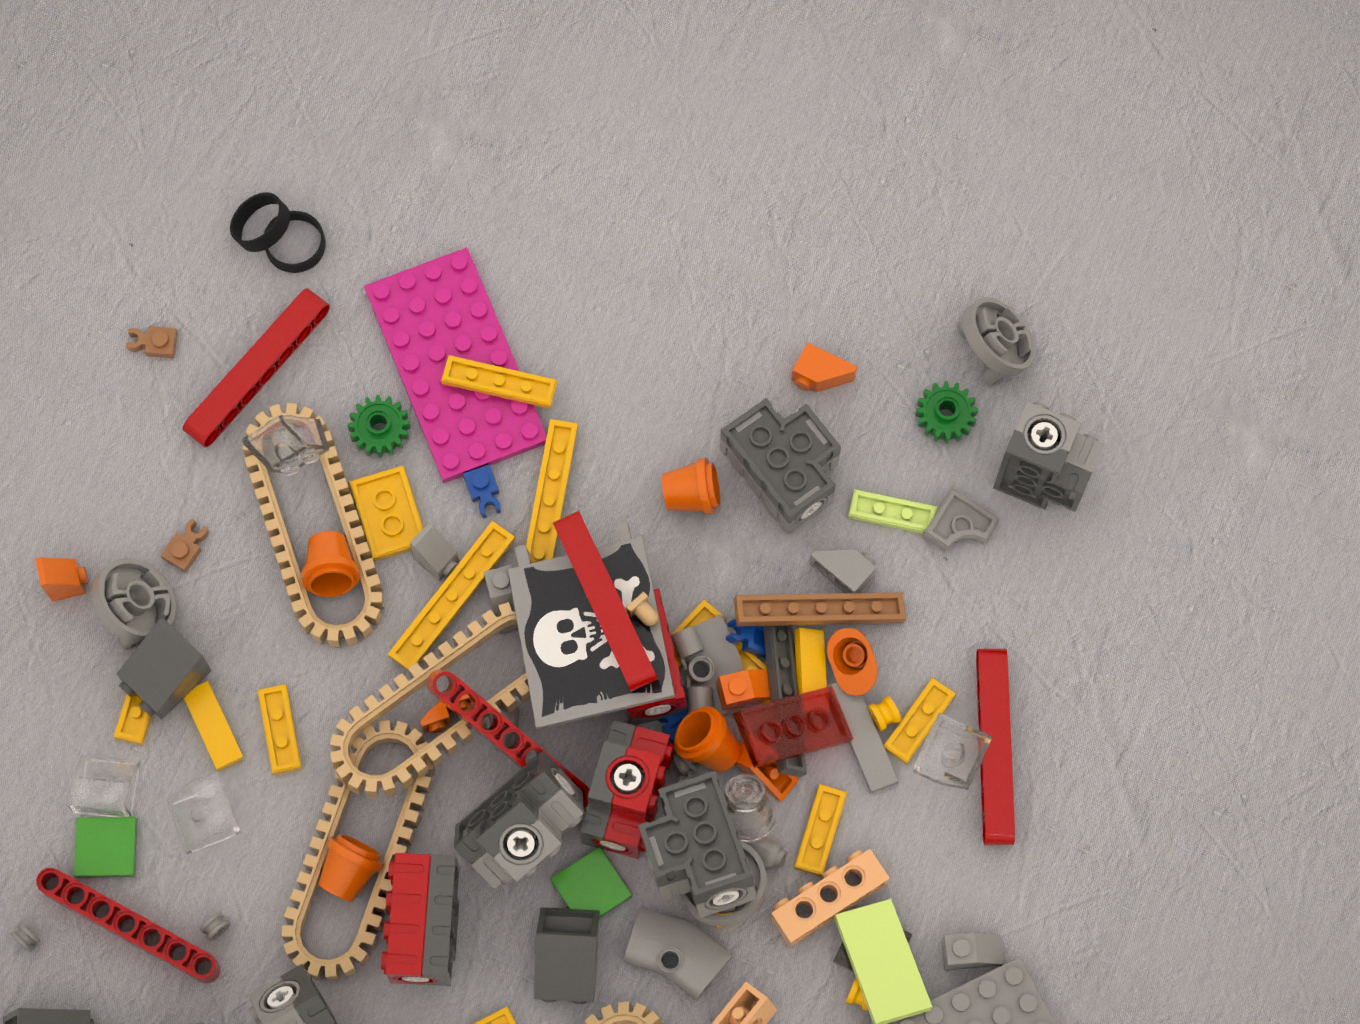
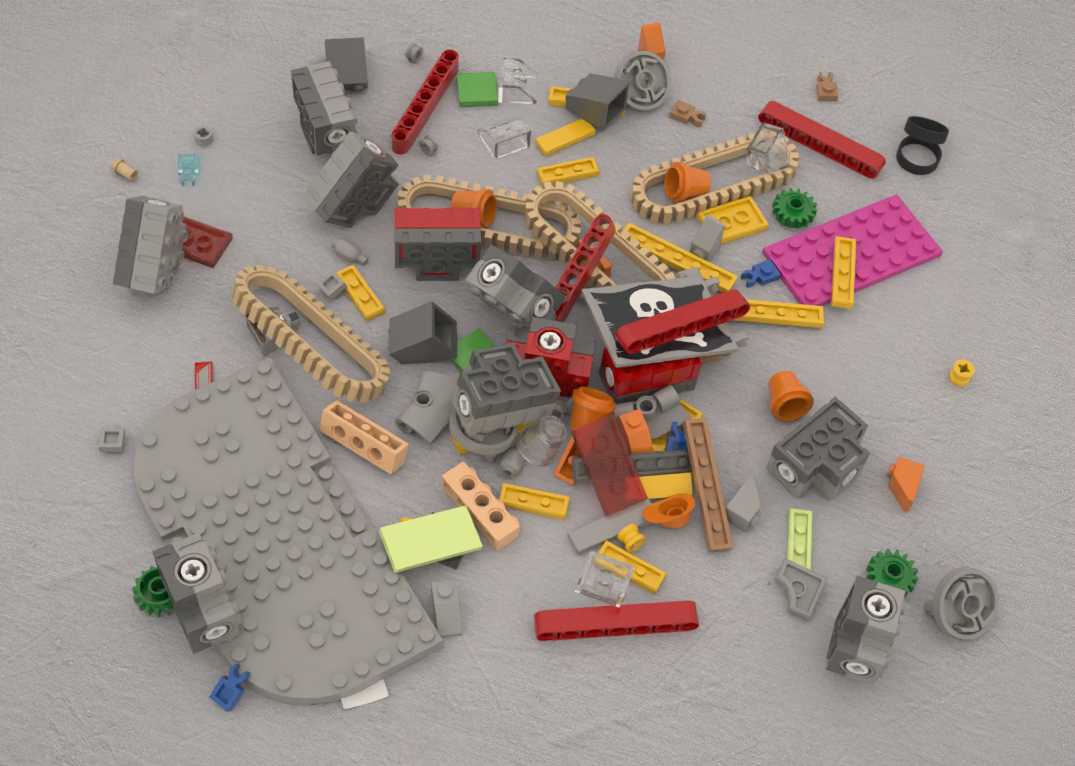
camera: 80 degrees right, 15 degrees down
(643, 610) = (681, 341): tan piece -> none
(665, 273) = (961, 378): none -> yellow wheel

